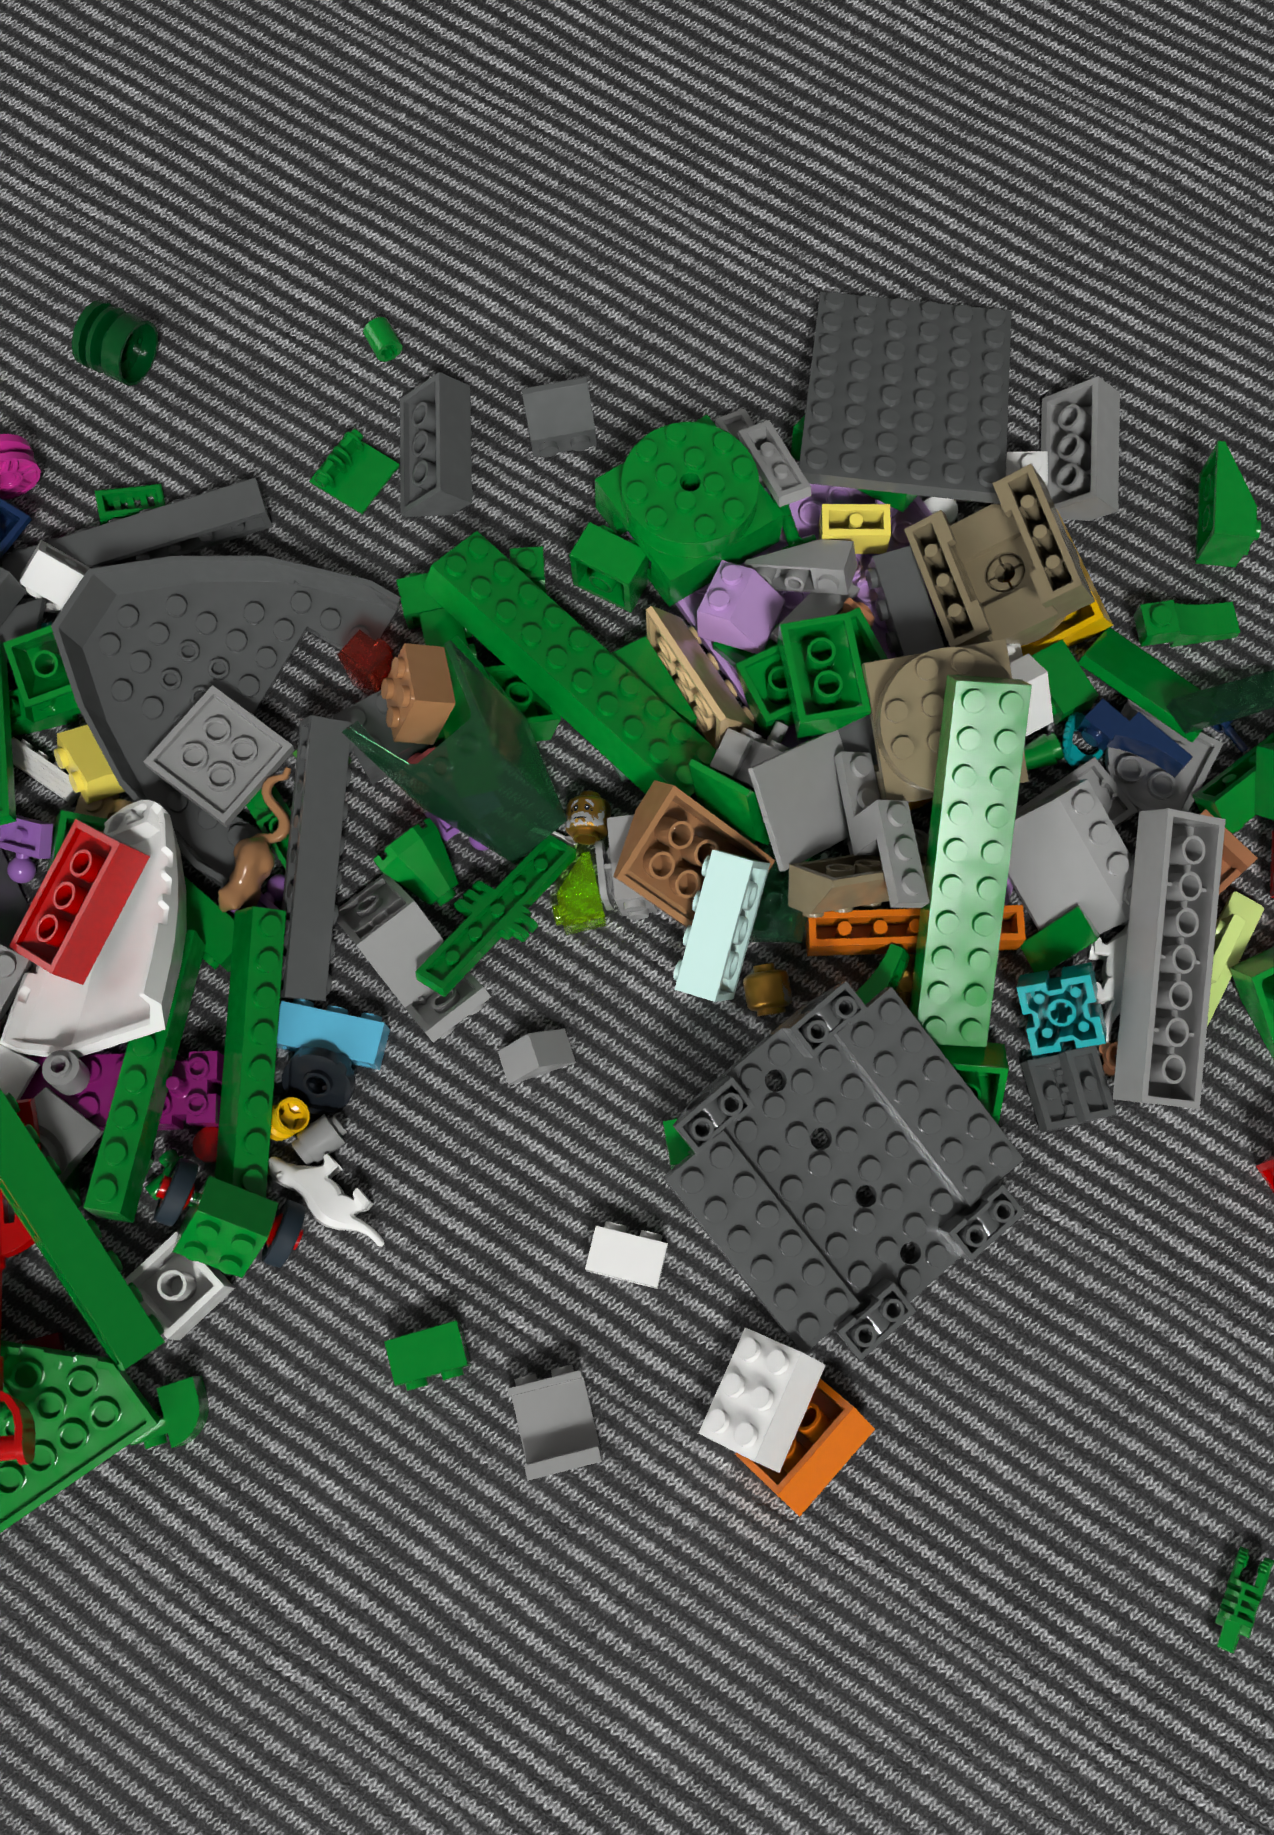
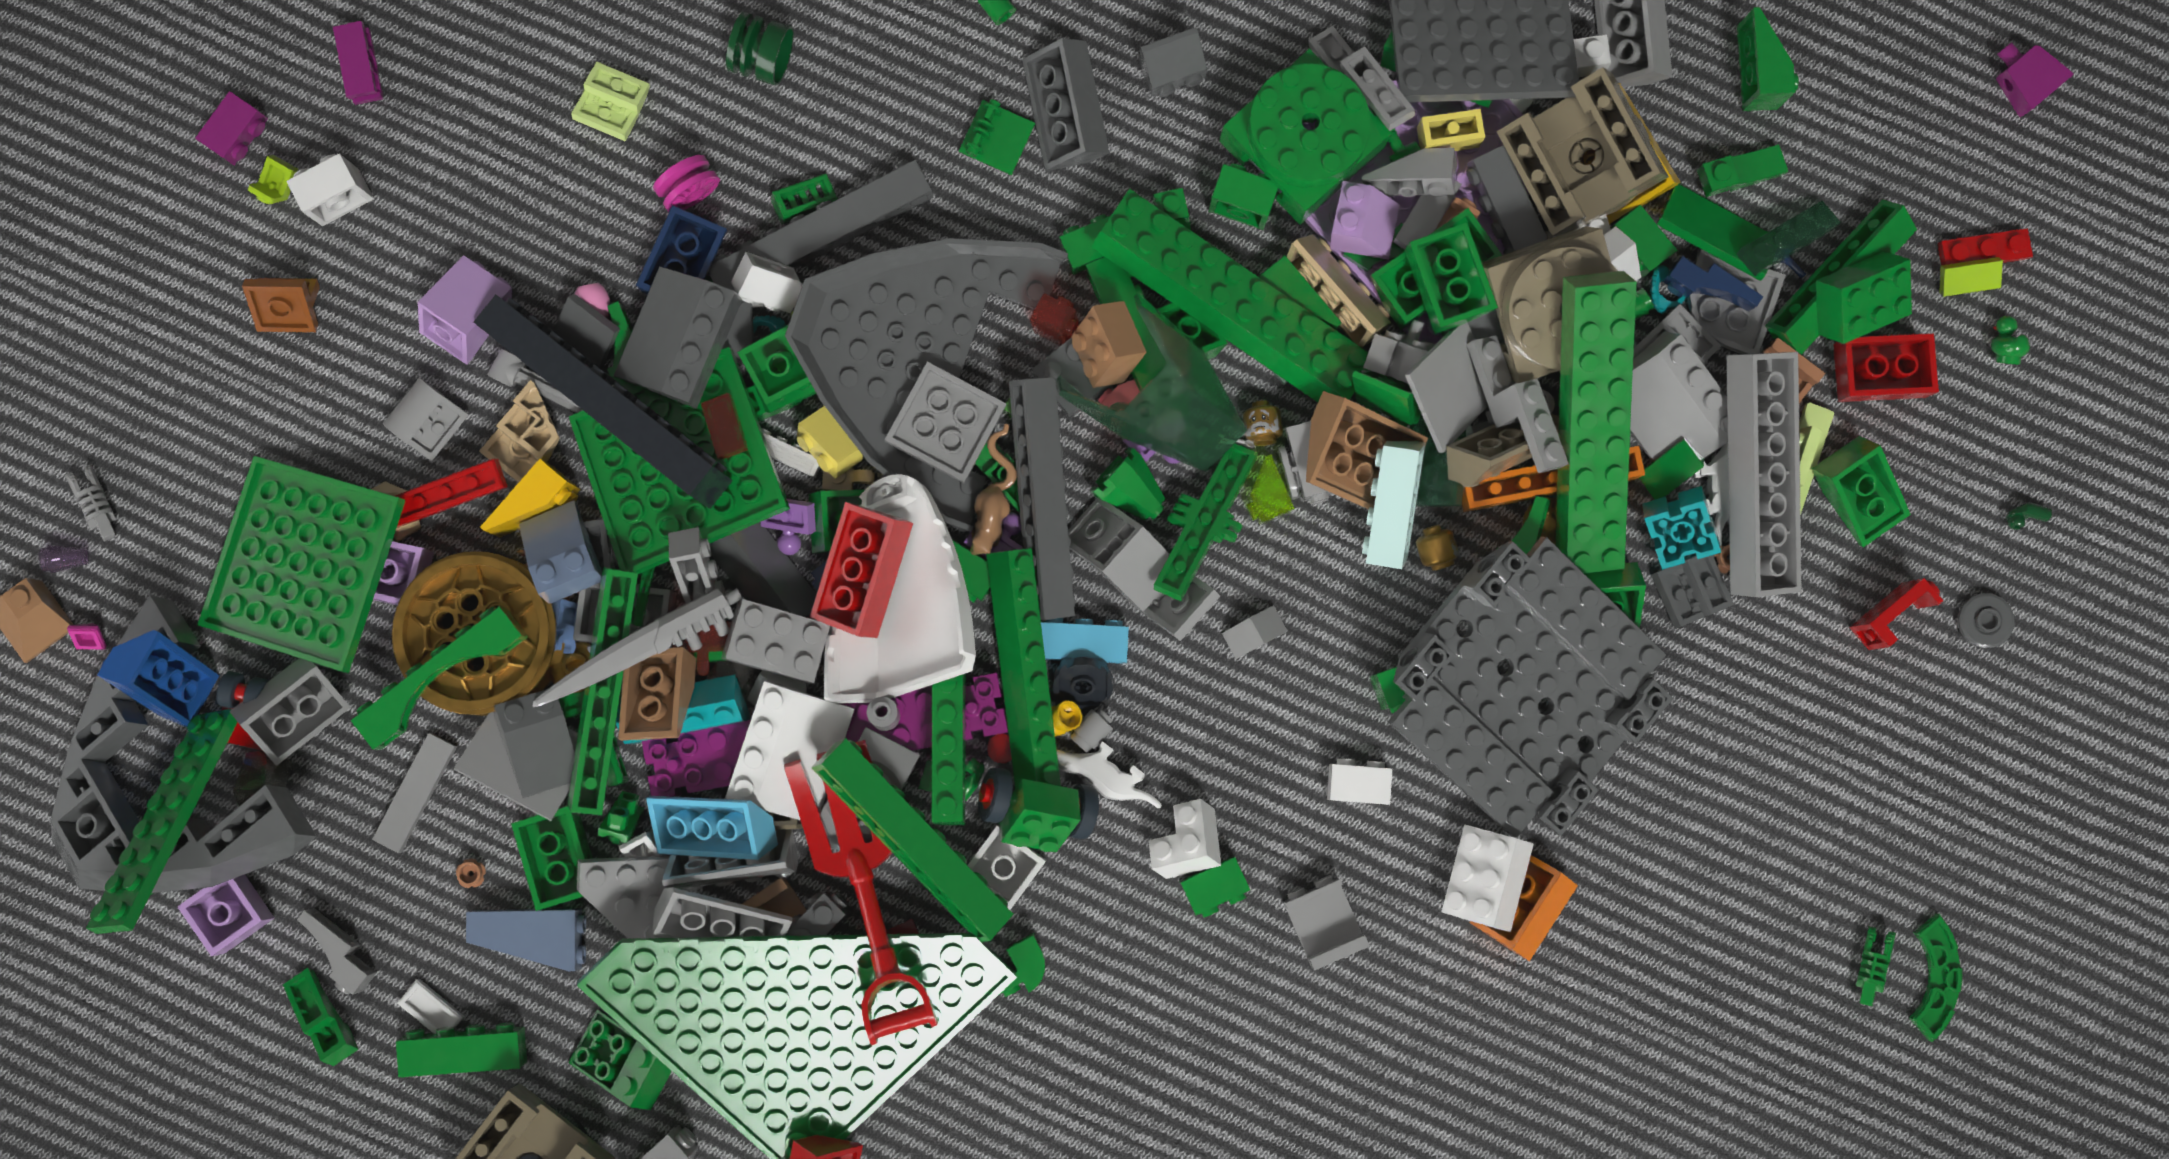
camera: 15 degrees left, 10 degrees up
(408, 1296) = (1193, 845): none -> white brick

